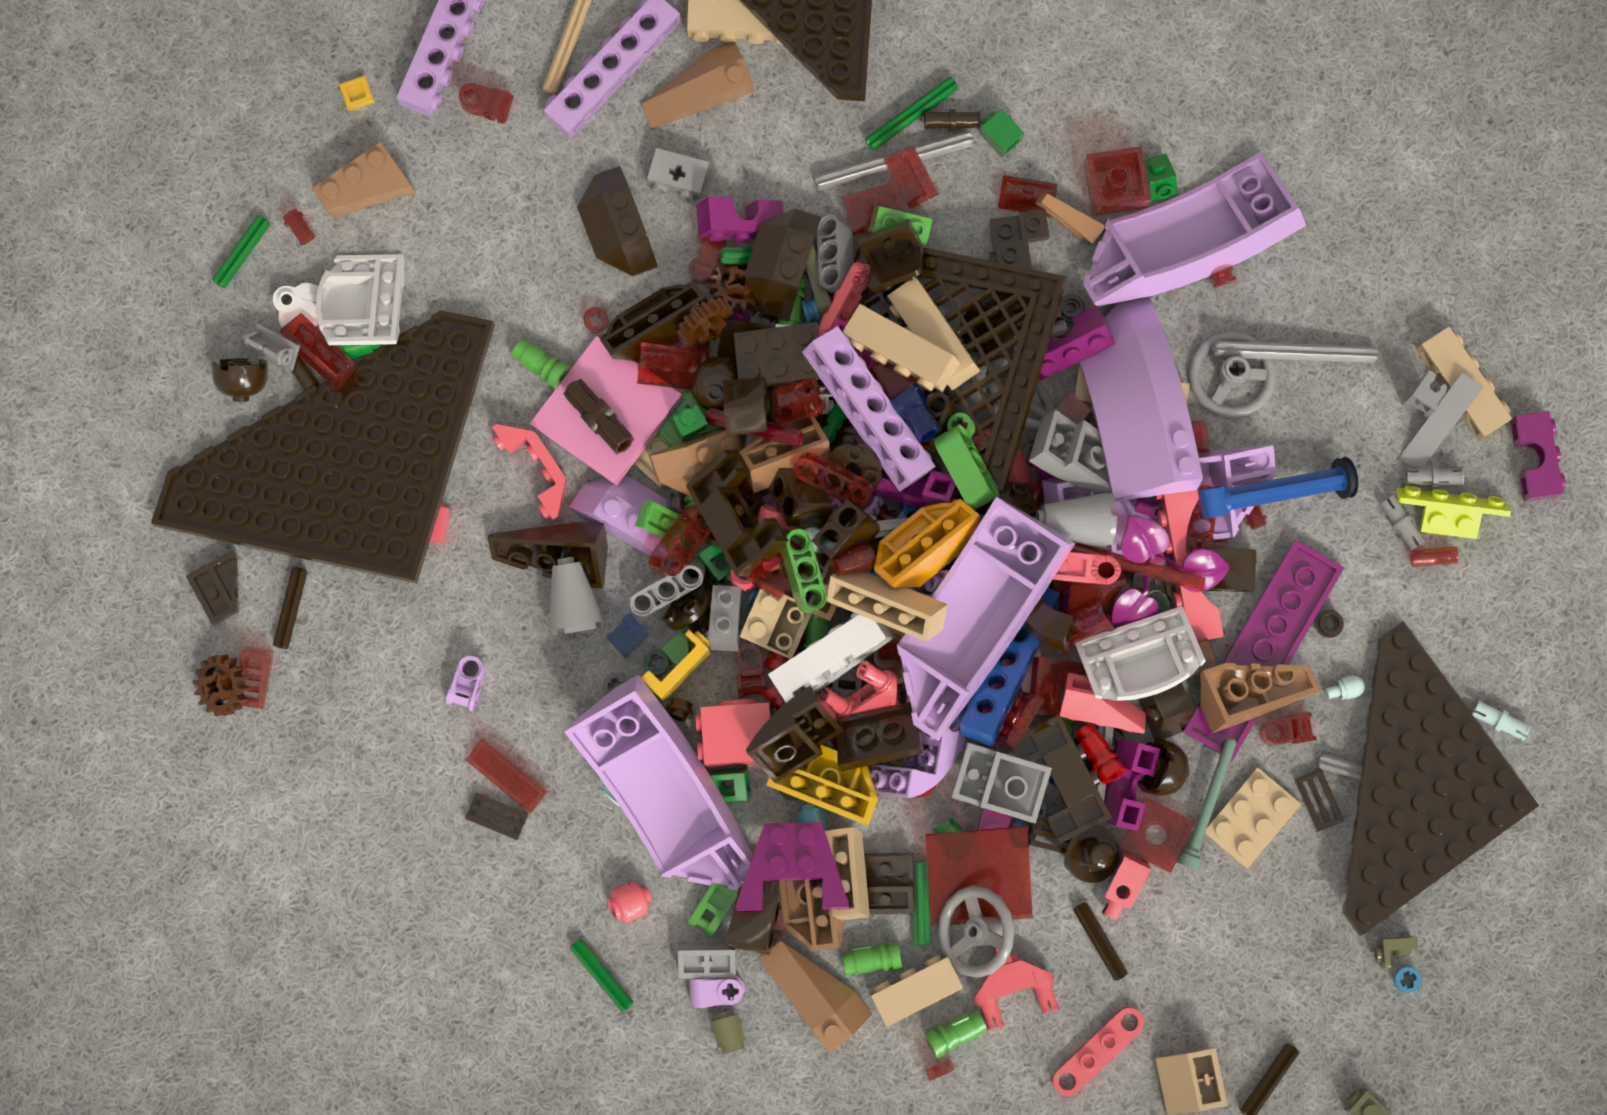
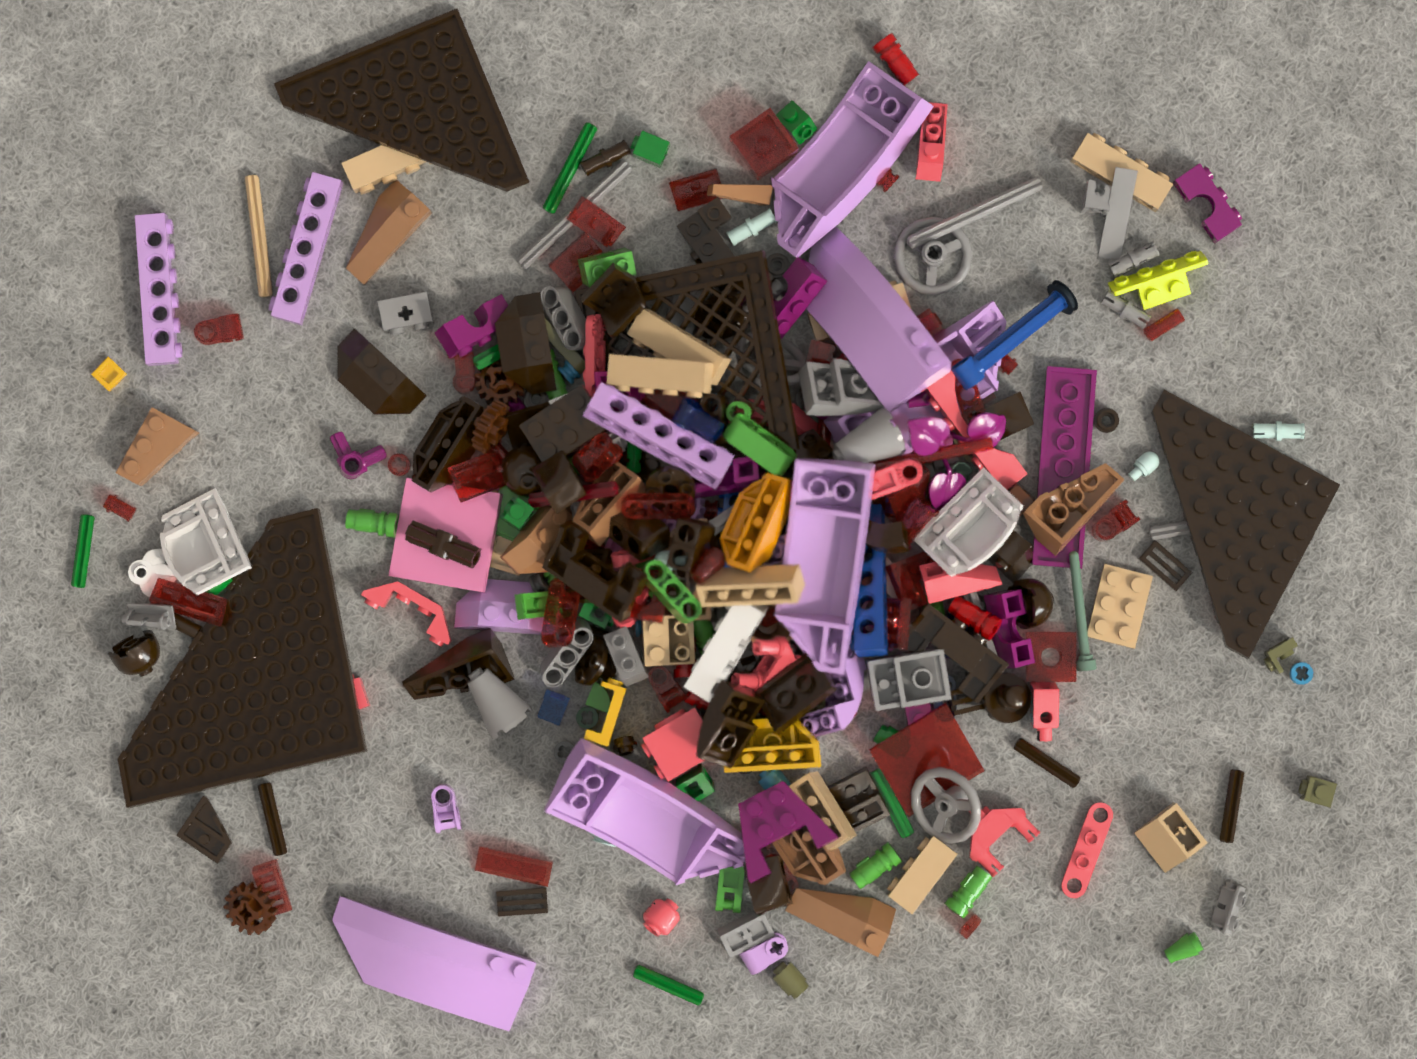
camera: 25 degrees left, 5 degrees up
(375, 835) = (433, 964): none -> lavender slope
(562, 297) = (346, 454): none -> magenta axle
(1064, 257) = (751, 227): none -> light aqua pin
(1285, 264) = (932, 144): none -> coral slope
(1289, 162) = (896, 60): none -> red axle

